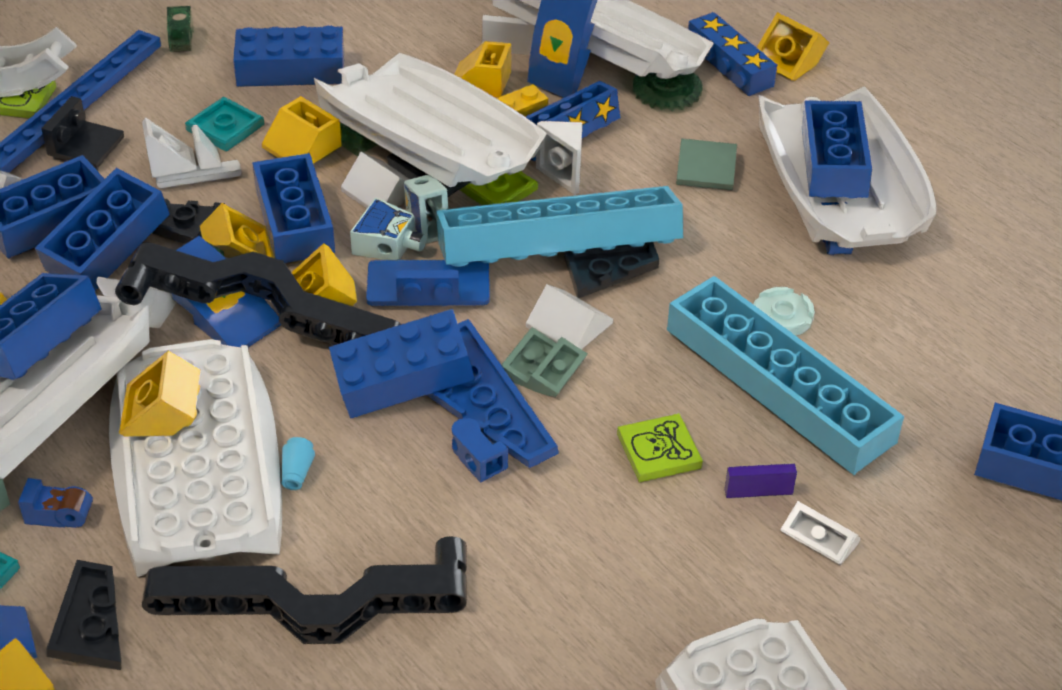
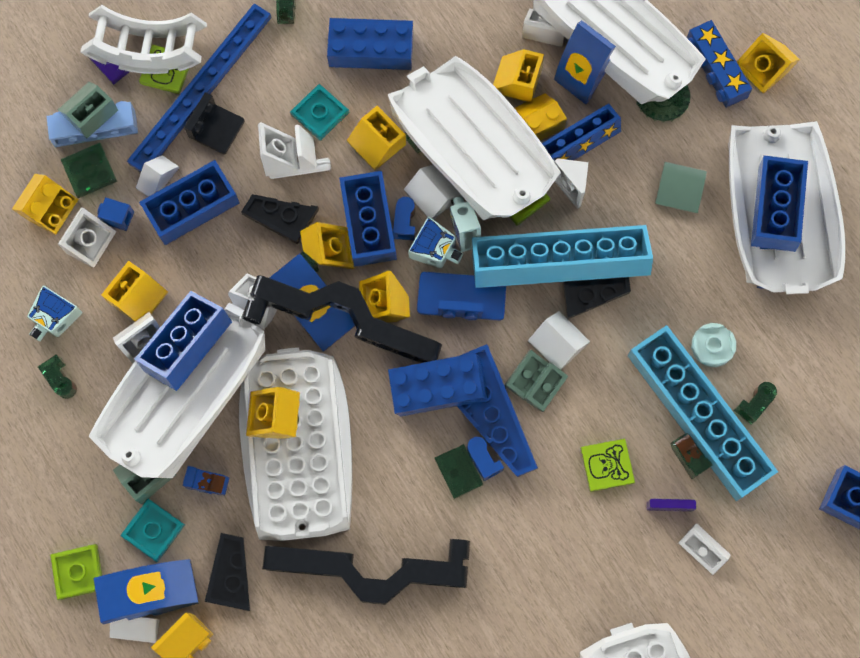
camera: 10 degrees right, 30 degrees up
(104, 228) = (231, 238): blue brick -> none
(296, 461) = (362, 459): medium azure cone -> none
(343, 209) = (402, 222): none -> blue leg
(441, 471) = (458, 471): none -> clear green plate
(777, 426) = (690, 455): none -> clear green leg
(860, 358) = (762, 397): none -> clear green leg

